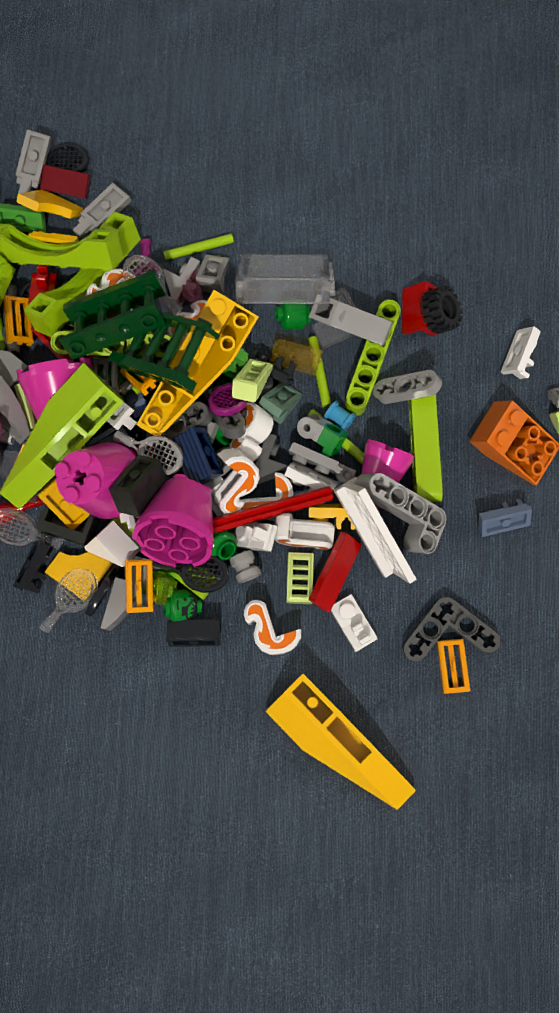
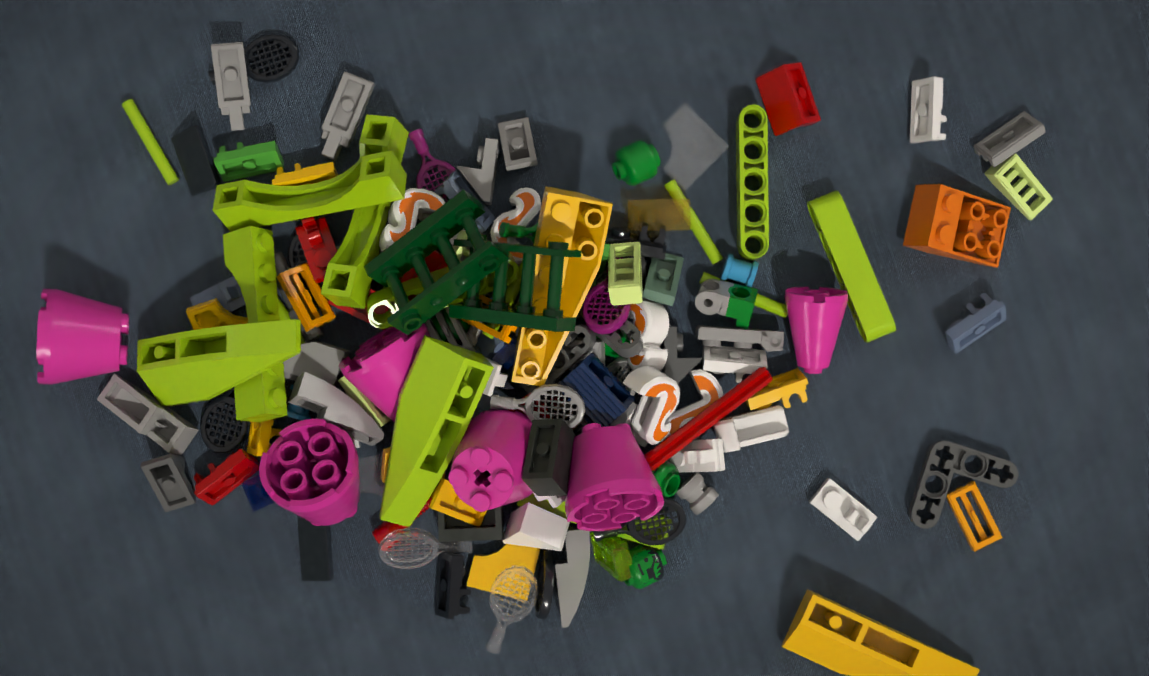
camera: 20 degrees left, 10 degrees up
(47, 202) = (275, 129): yellow tile -> none
(65, 181) = (282, 90): dark red tile -> none
(128, 586) = (577, 541): light orange tile -> none
(167, 300) = (491, 213): clear piece -> none
(192, 291) = (504, 183): clear pink axle -> none
(193, 633) = (667, 590): black slope -> none
(198, 247) = (484, 114): lime bar -> none
(264, 634) = (748, 562): white animal -> none
(284, 279) = (627, 160): clear window -> none
(296, 598) = (757, 496): yellowish green slope -> none
(335, 572) = (803, 460): red tile -> none
(352, 320) = (712, 151): light grey slope -> none
(373, 531) = (832, 399): white fence -> none
(417, 388) = (821, 213): light grey beam -> none
(424, 518) = (886, 364): light grey beam -> none
(441, 309) = (815, 94): black tyre -> none

